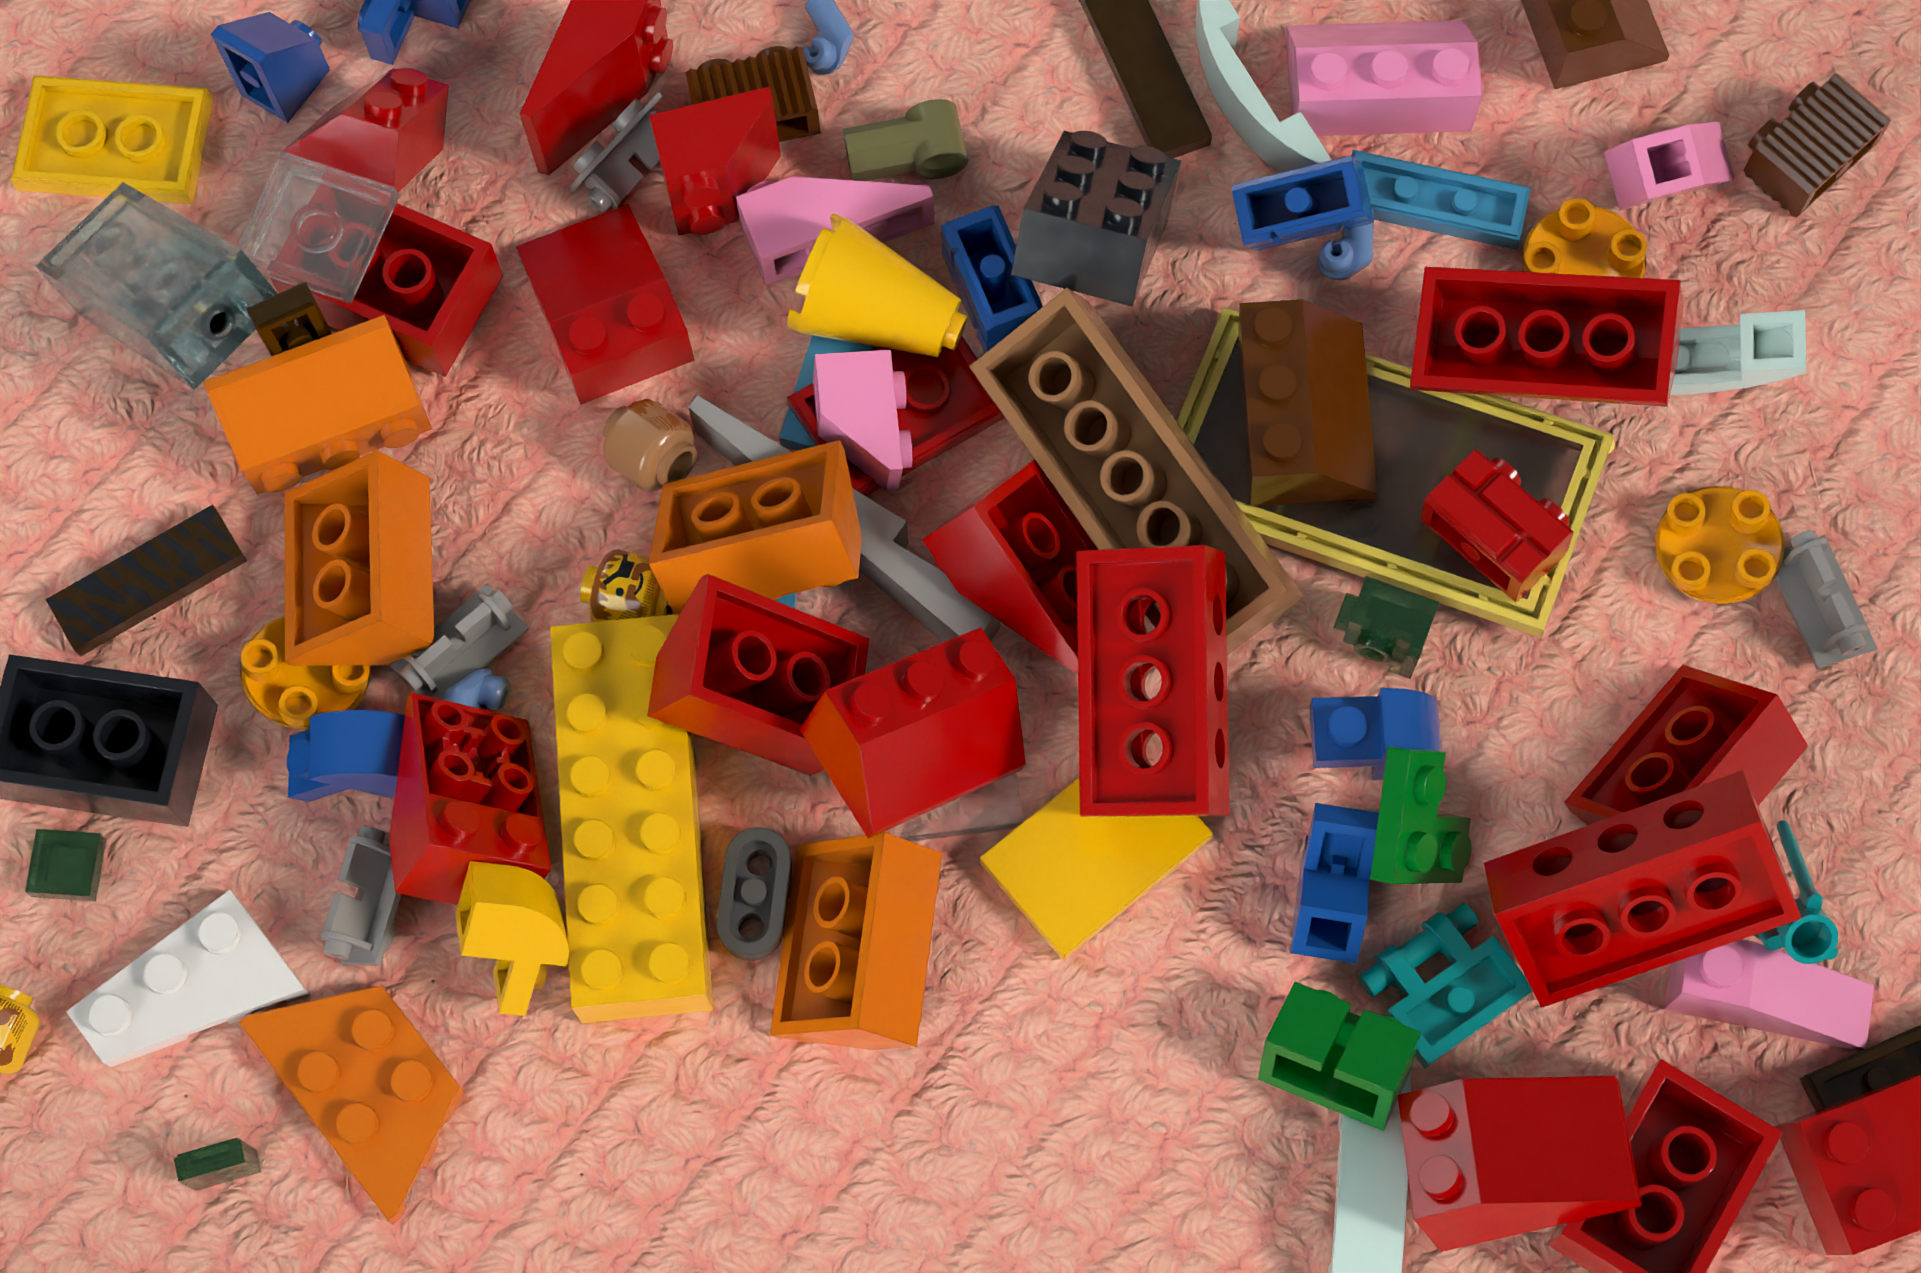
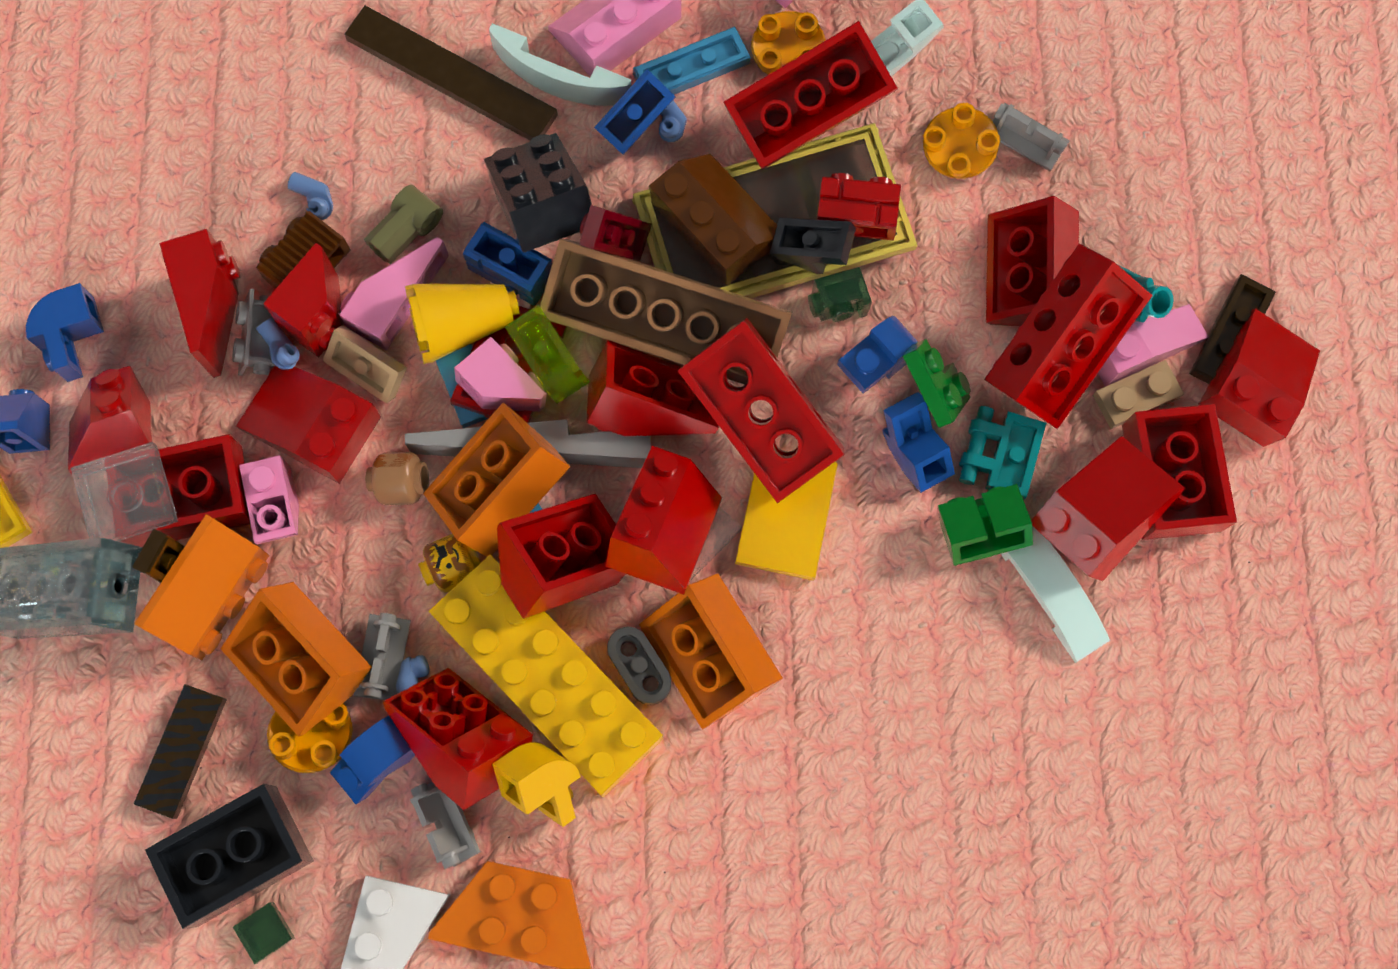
camera: 45 degrees left, 5 degrees up
(482, 358) = (270, 499): none -> bright pink slope
(640, 190) = (282, 351): none -> medium blue arm
(722, 280) = (364, 364): none -> tan plate
(944, 424) = (547, 354): none -> clear neon green slope
(1147, 332) = (614, 233): none -> dark red plate
(1396, 525) = (813, 242): none -> black slope
(1709, 1049) = (1138, 392): none -> tan plate

